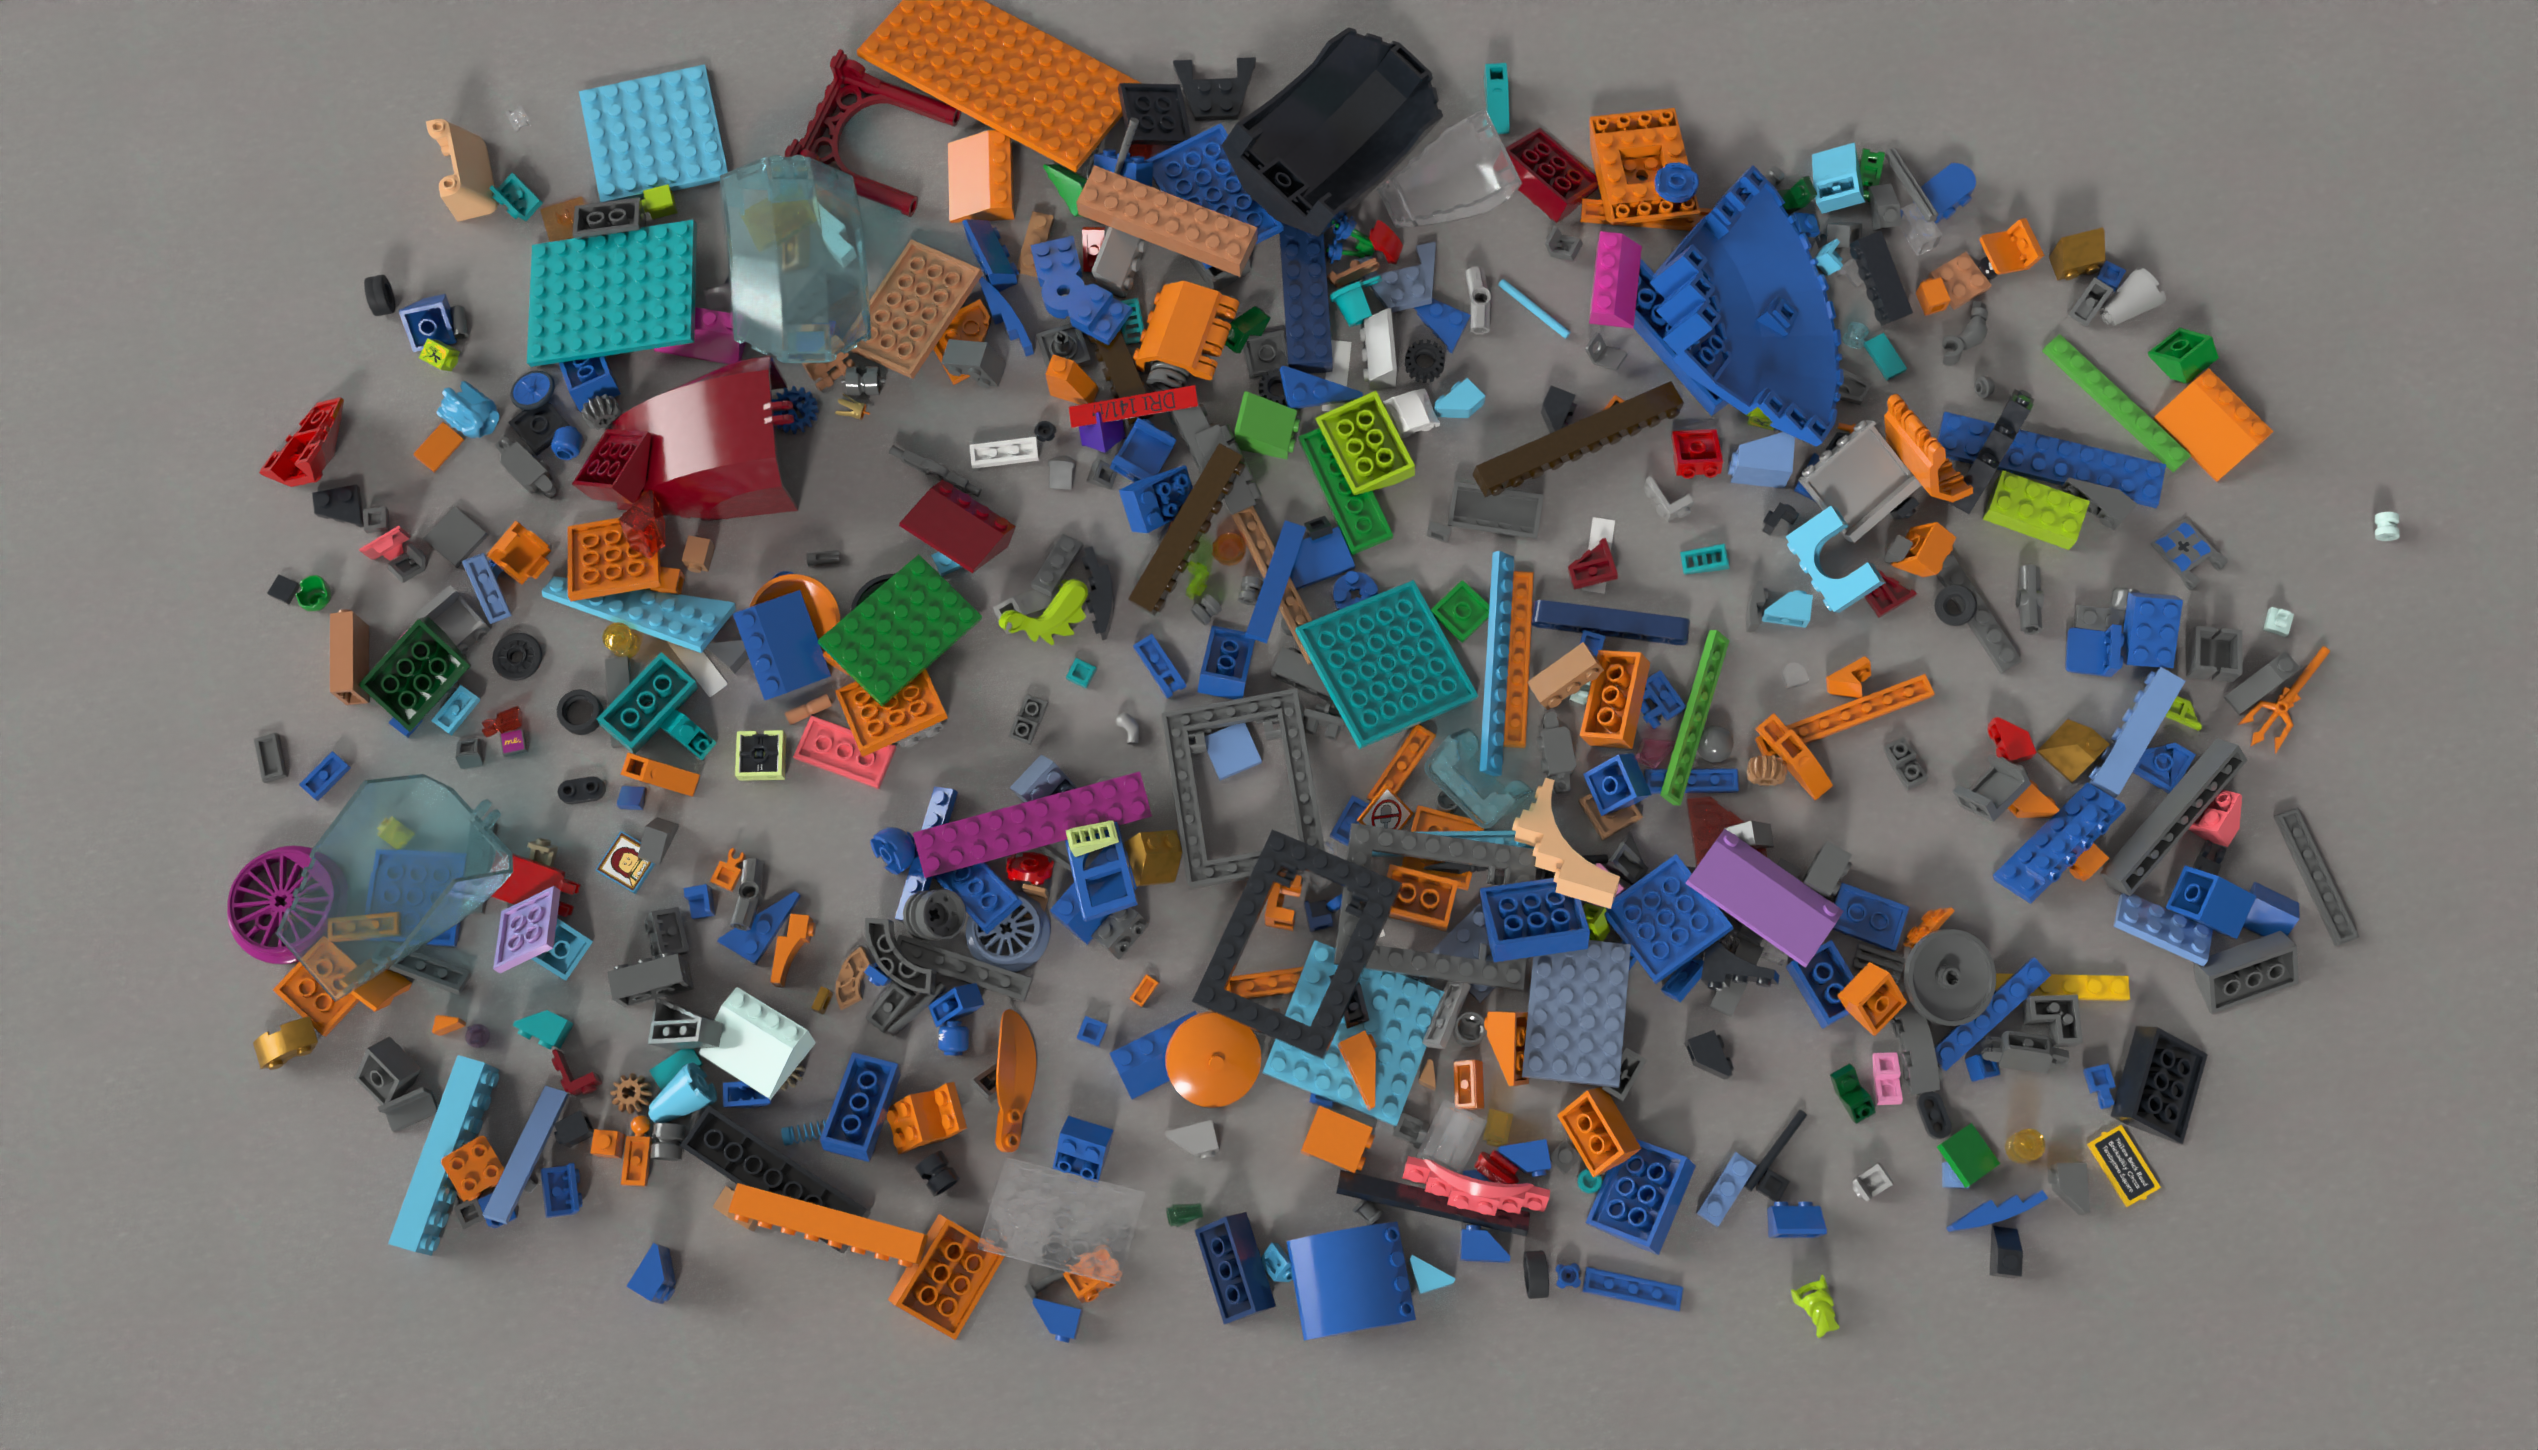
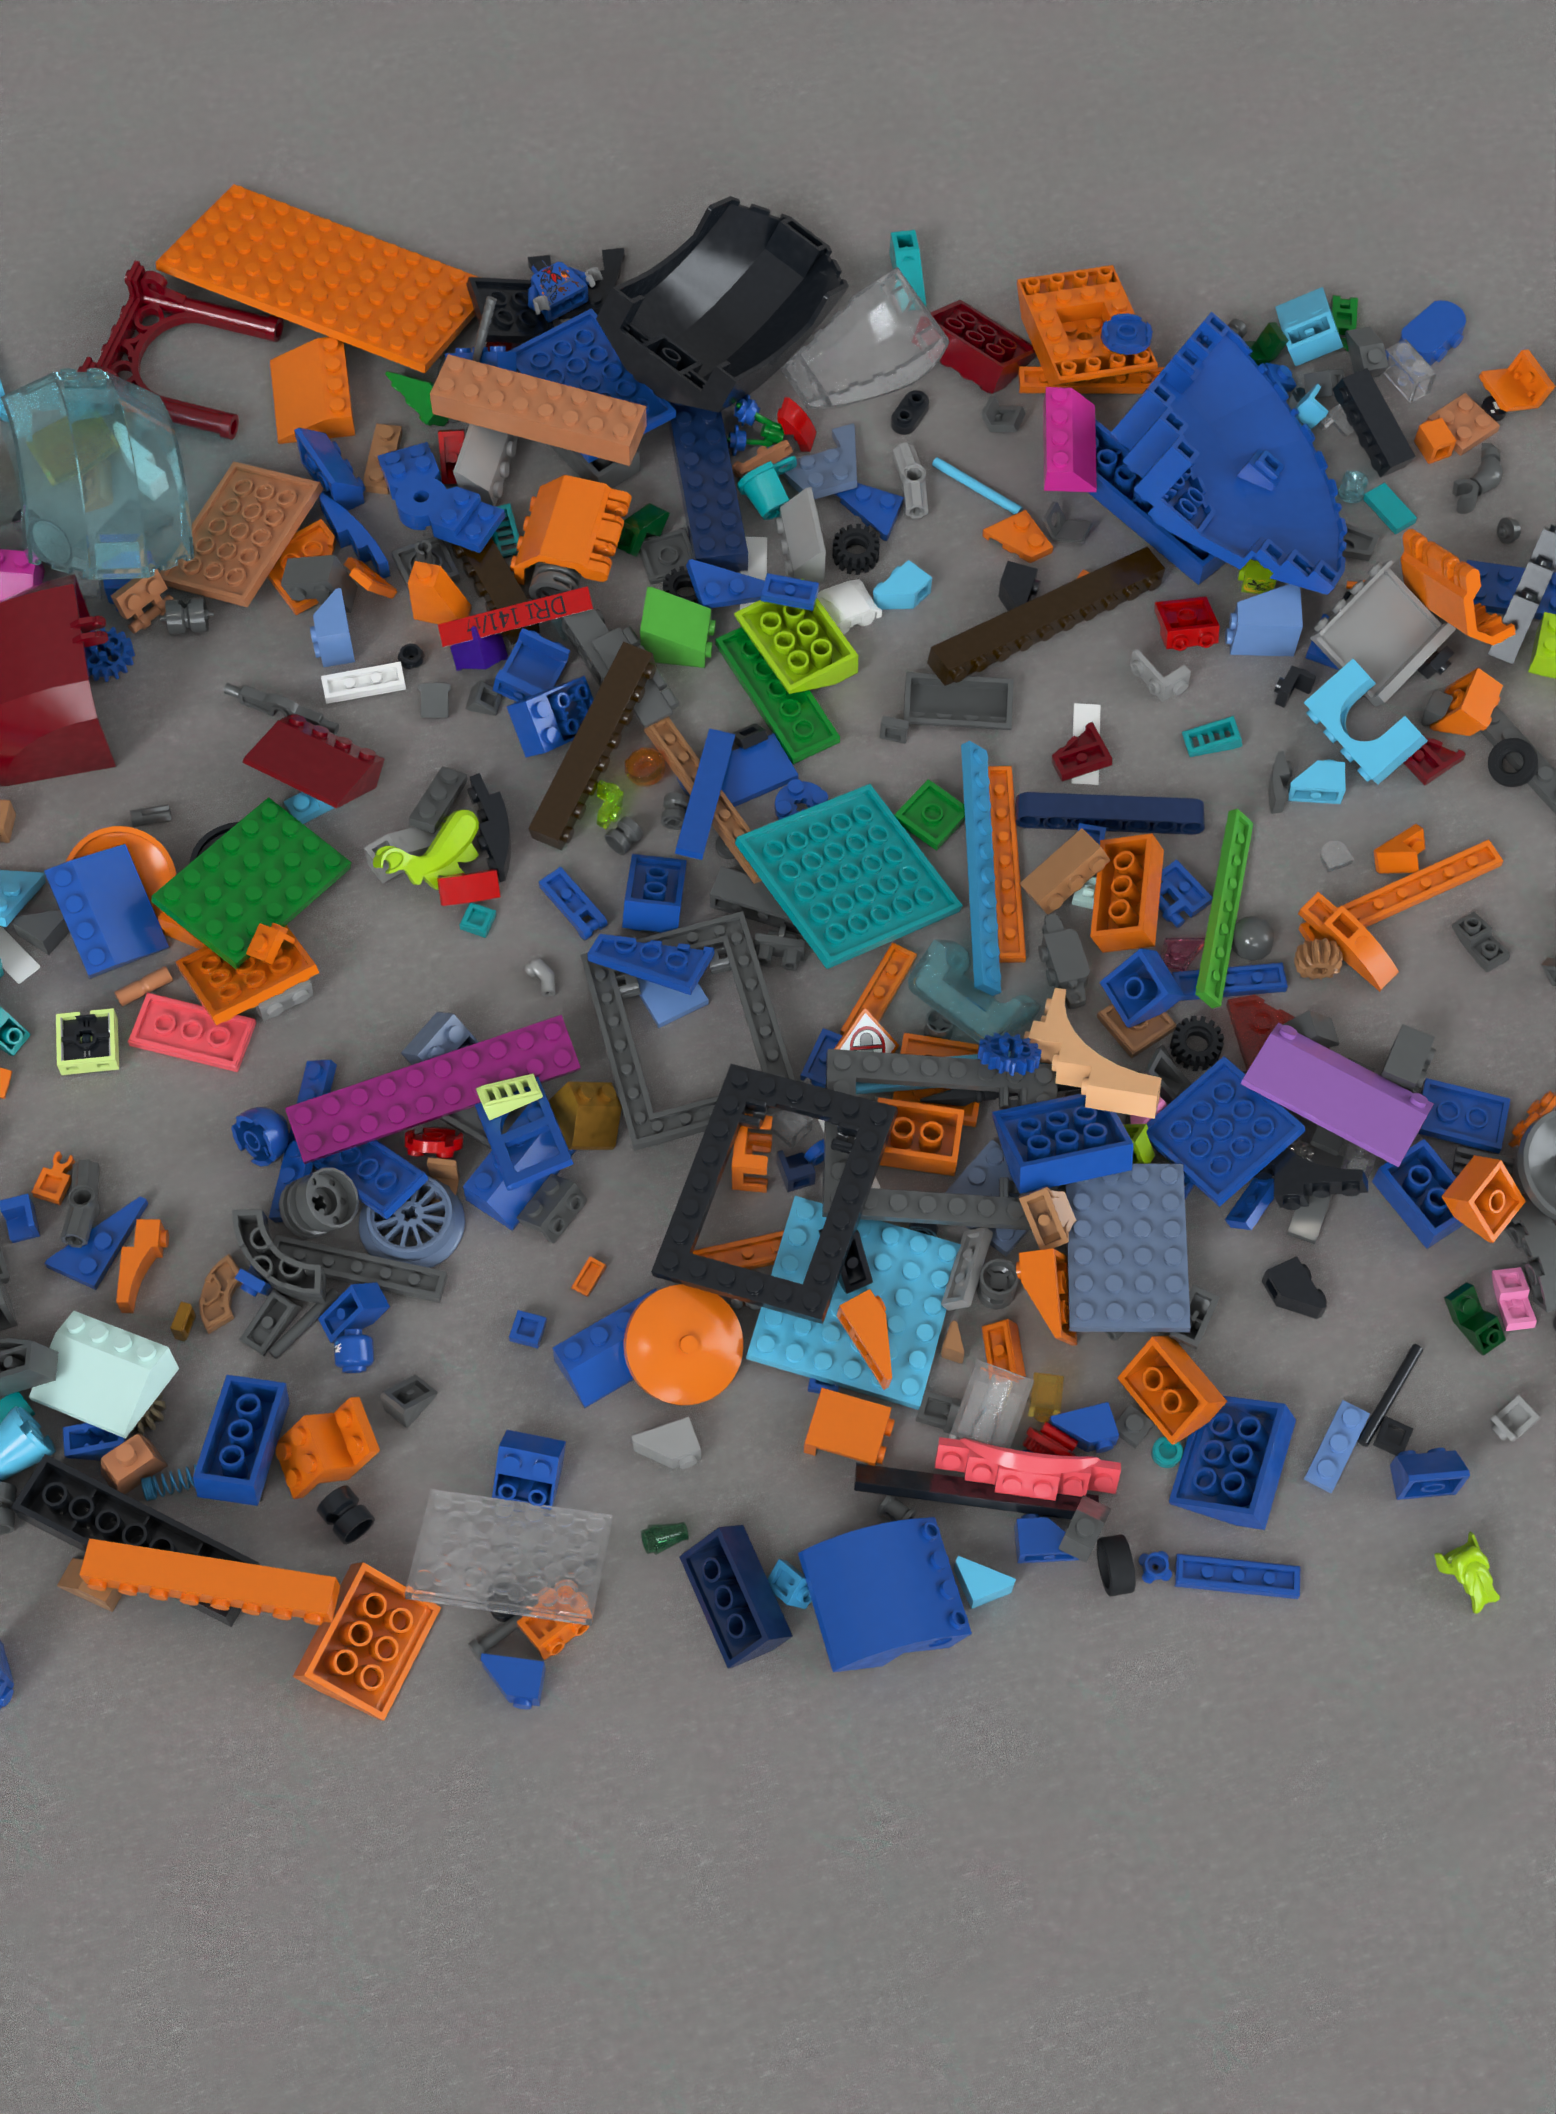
camera: 10 degrees left, 10 degrees down
(775, 1116) = (130, 1463): none -> nougat torso
(858, 408) = (179, 648): pearl gold piece -> none
(909, 687) = (267, 942): none -> orange bracket
(981, 407) = (331, 632): none -> medium blue slope
(1013, 1078) = (435, 1395): orange plant -> none
(1015, 359) = (369, 578): none -> orange tile
(1029, 719) = (418, 976): dark grey slope -> none
(1075, 646) = (468, 887): none -> red slope
(1195, 97) = (559, 288): none -> blue torso
(1227, 731) = (661, 964): none -> blue wing
(1363, 404) = (789, 591): none -> blue plate
(1485, 232) = (913, 408): none -> black plate
(1487, 838) = (1023, 1055): none -> blue gear
(1515, 983) = (1048, 1216): none -> medium nougat slope
(1515, 1243) = (1084, 1528): none -> dark grey slope
(1565, 358) = (1020, 536): none -> orange wing
(1652, 847) = (1203, 1030): none -> black tyre
(1911, 185) = (1393, 325): dark grey axle -> none

